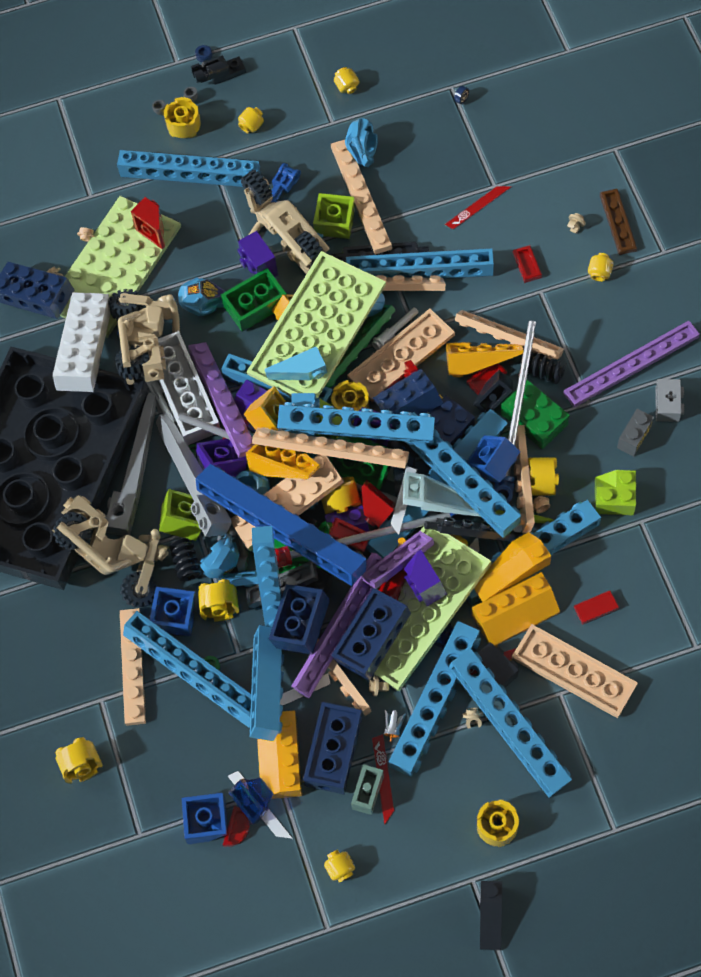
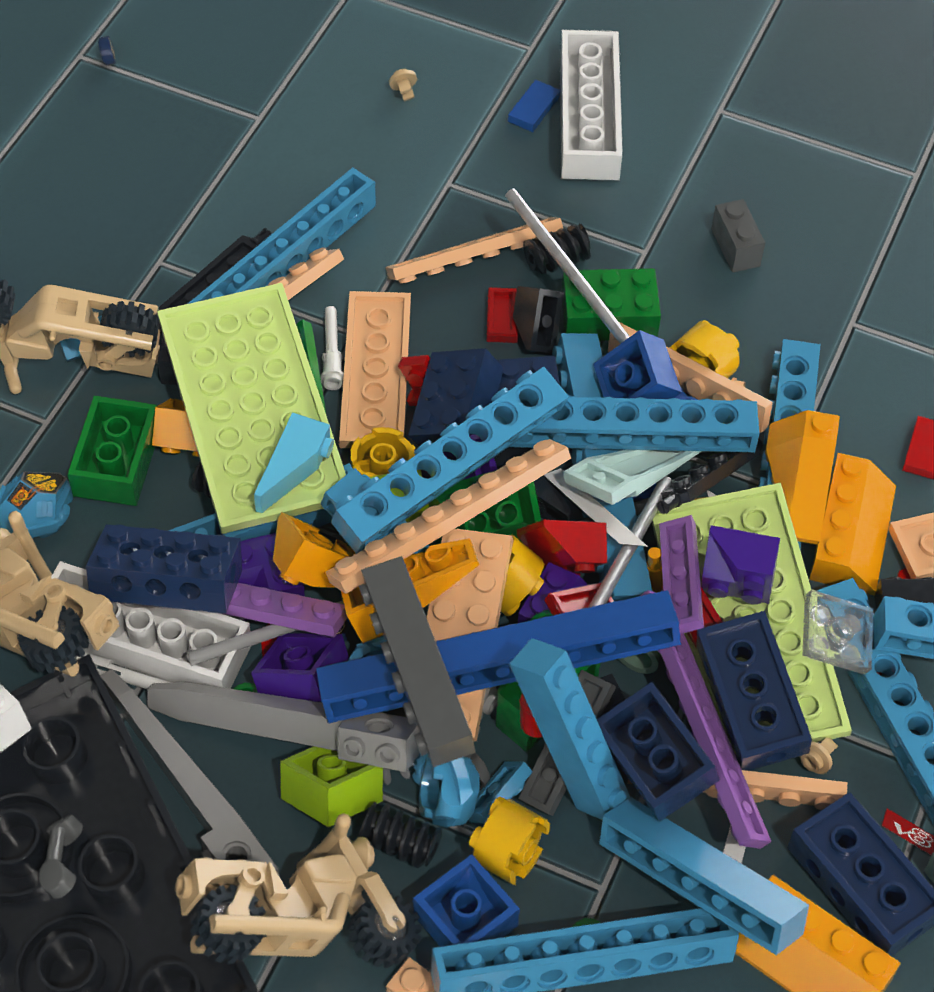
camera: 55 degrees left, 10 degrees down
(42, 456) = (53, 875): none -> dark grey bar
(206, 370) = (165, 568): none -> dark blue brick
(238, 495) = (418, 662): none -> dark grey brick
(256, 254) = (59, 394): dark purple slope -> none
(334, 215) = (108, 271): lime slope -> none
(362, 141) = (39, 173): dark azure helmet -> none
(363, 201) = (113, 238): light nougat plate -> none
(392, 728) = (898, 786): flat silver piece -> none
(436, 644) = (838, 632): none -> clear plate
(466, 359) = (465, 308): light orange wedge -> none
(475, 207) = (264, 153): red sticker -> none
(527, 264) = (399, 166): red tile -> none
(600, 267) = (488, 106): yellow head -> none
(616, 493) = (797, 309): lime slope -> none
(618, 222) = (446, 53): reddish brown tile -> none
(625, 284) = (534, 105): none -> blue tile
(631, 364) = (642, 178): medium lavender plate -> none
(646, 306) = (590, 105): none -> white brick
(669, 390) = (727, 177): light grey brick -> none

